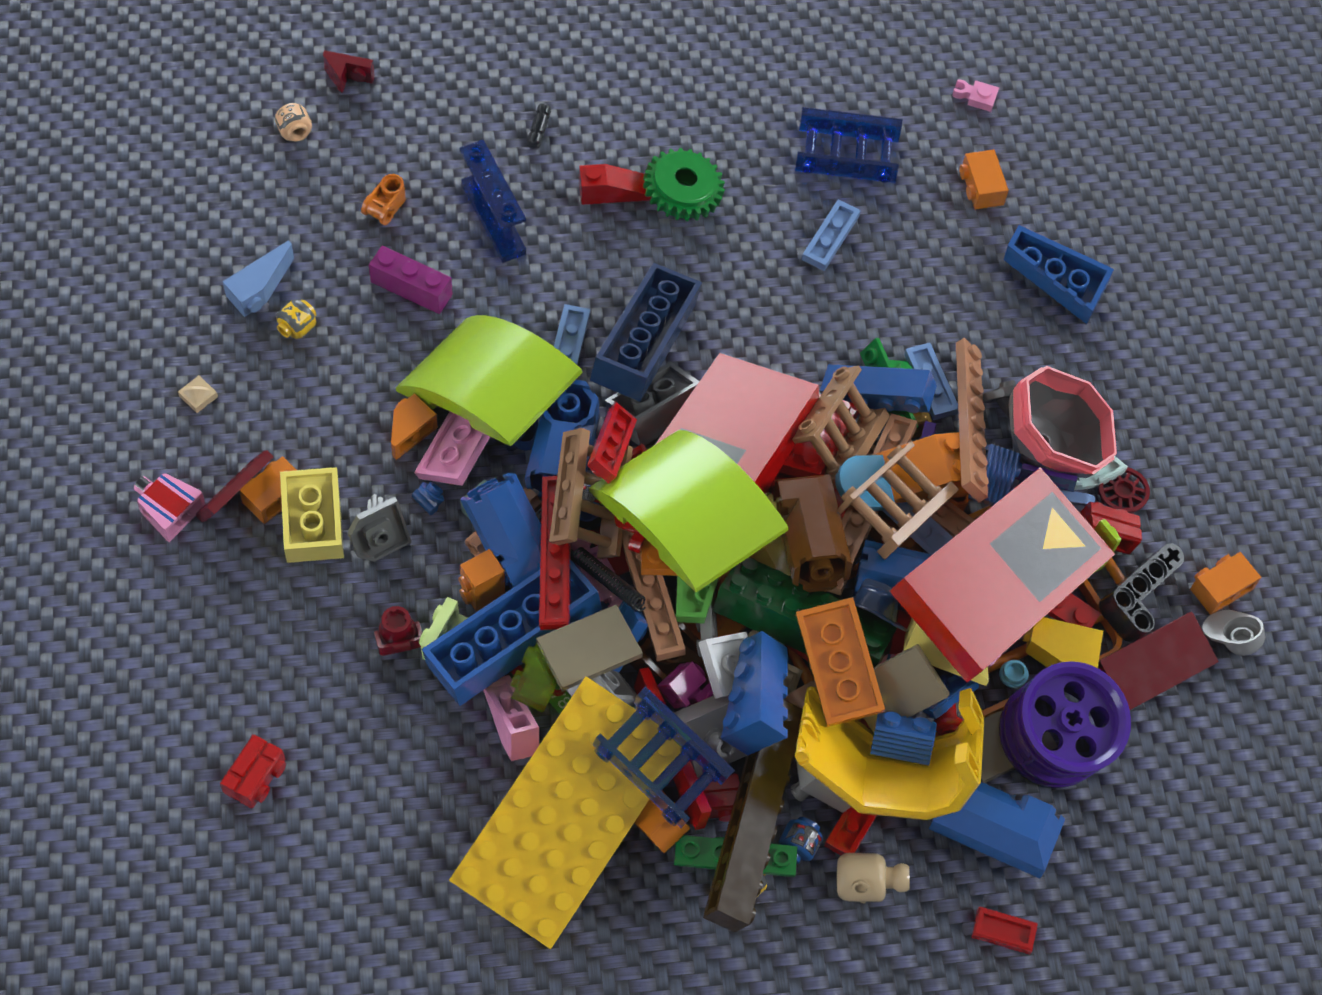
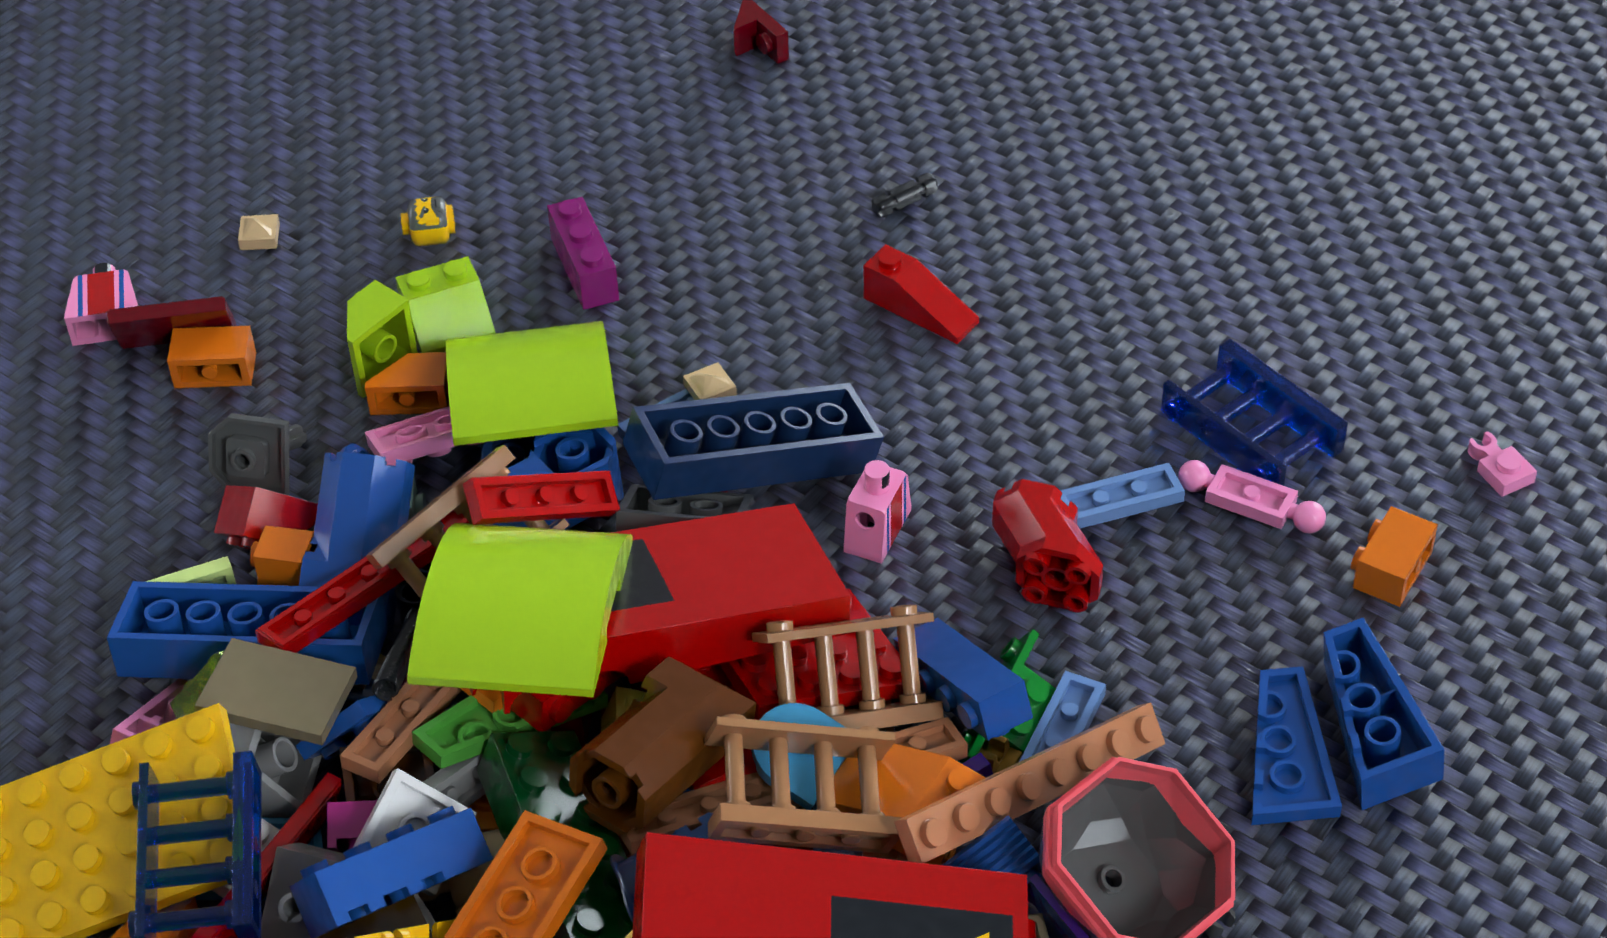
camera: 50 degrees right, 15 degrees down
(256, 282) = (440, 165): medium blue slope -> none
(293, 122) = (644, 47): light nougat head -> none
(311, 515) = (202, 392): light yellow slope -> none
(361, 410) = (377, 331): none -> lime slope
(371, 367) = (445, 304): none -> lime slope
(383, 201) = (656, 167): orange piece -> none
(397, 632) = (156, 556): dark red piece -> none
(433, 560) = (248, 510): none -> red slope
(493, 201) = (747, 224): clear blue fence -> none
(574, 314) = (709, 383): none -> tan tile
(663, 184) = (994, 338): green gear -> none
(732, 318) = (878, 498): none -> bright pink torso
(836, 287) = (1047, 545): none -> red brick
(890, 191) = (1252, 496): none -> bright pink plate
(1041, 321) = (1290, 754): none -> blue wing

